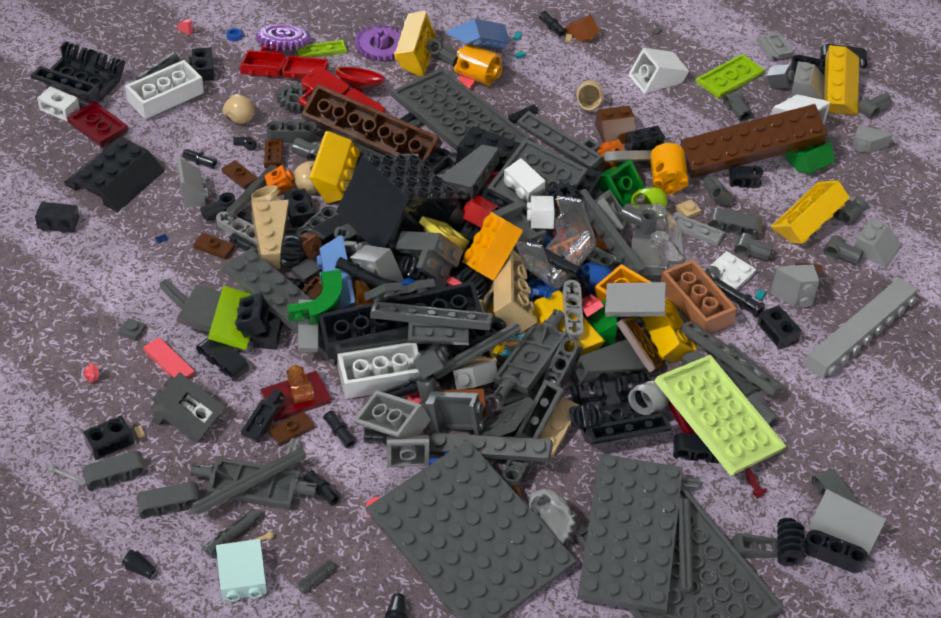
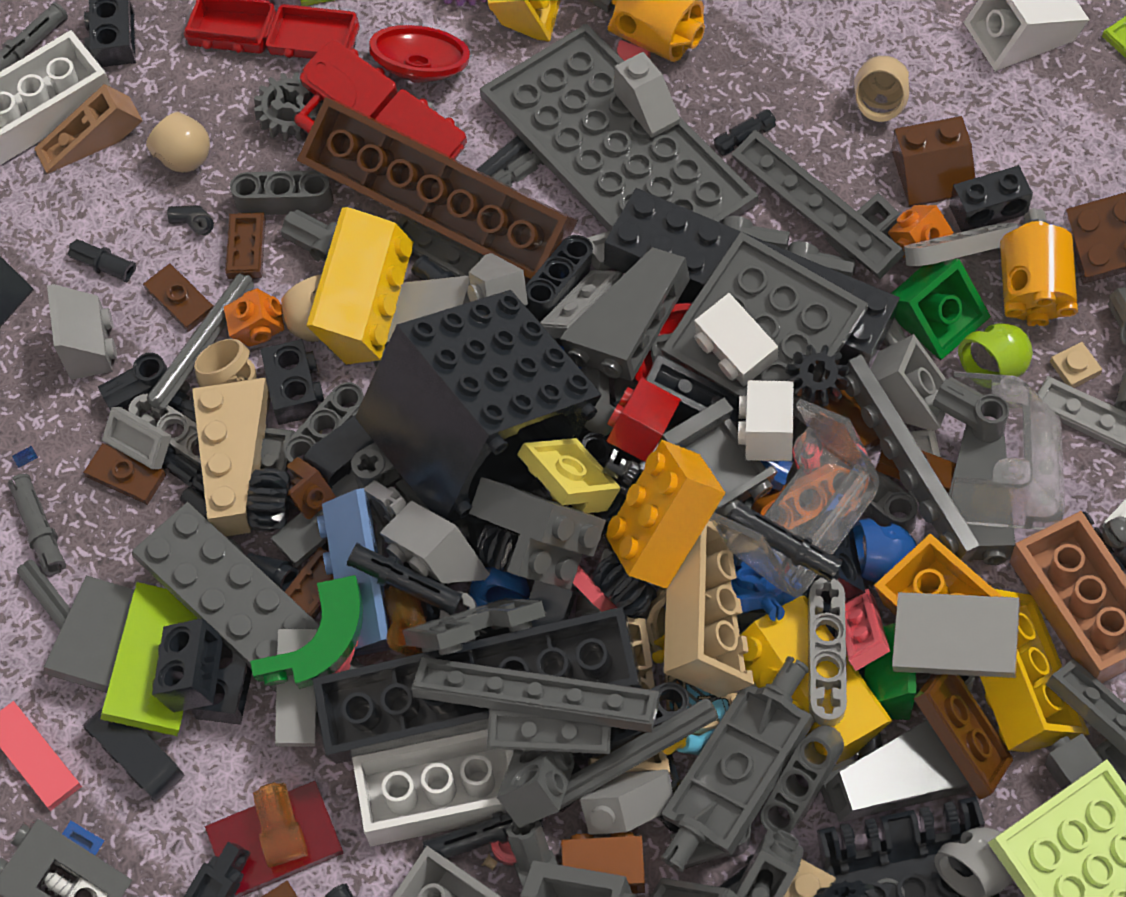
camera: 10 degrees right, 15 degrees up
(171, 268) = (41, 536): none -> dark grey pin
(195, 102) = (92, 127): none -> medium nougat slope
(220, 228) = (136, 438): none -> light grey tile
(474, 93) = (645, 94): none -> light grey slope

